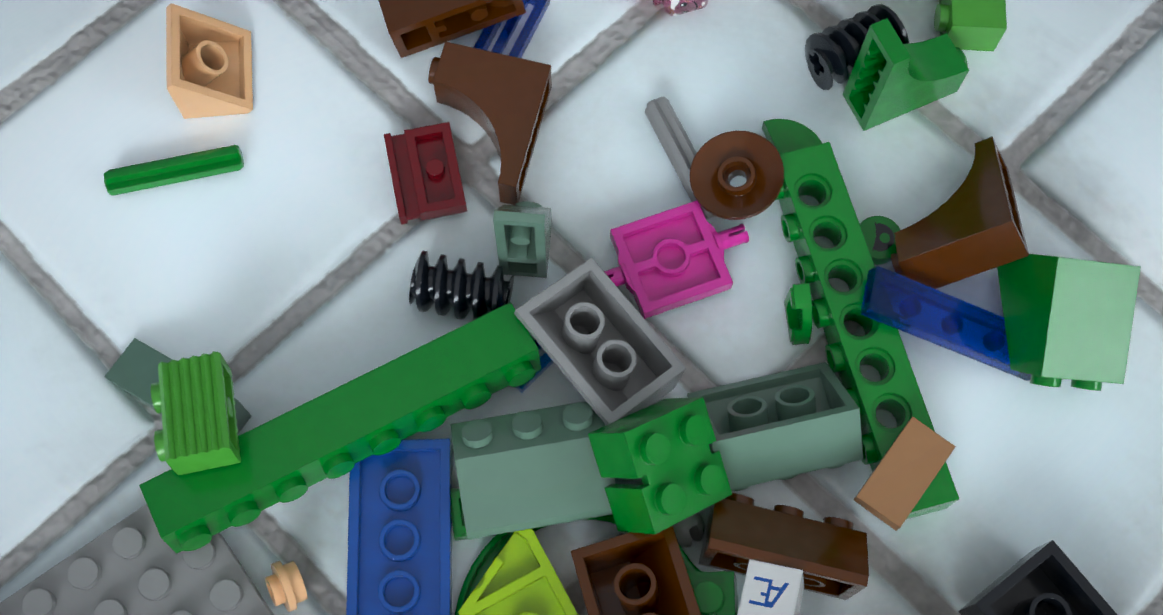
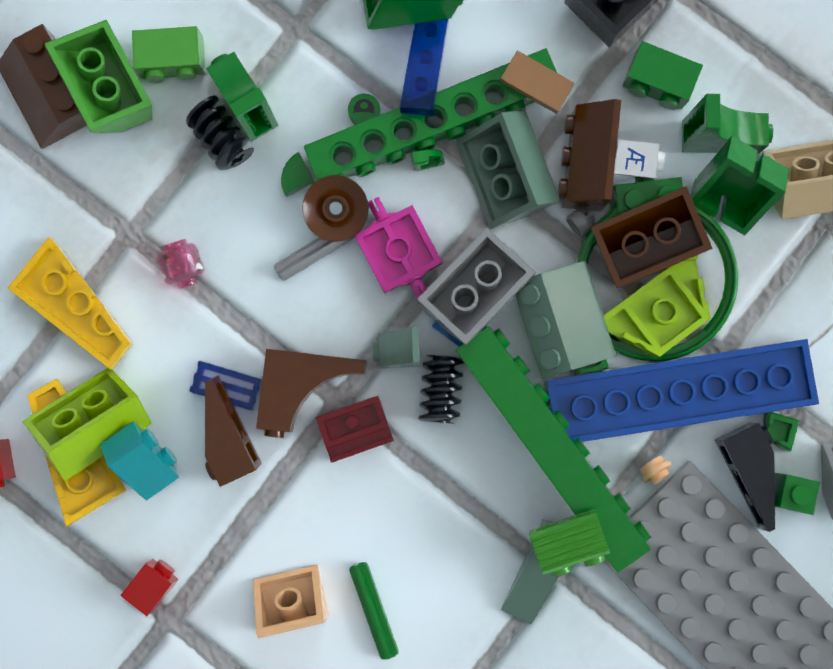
camera: 95 degrees left, 15 degrees up
(671, 456) = (556, 236): green piece -> none
(968, 232) = (359, 44): reddish brown arch -> none

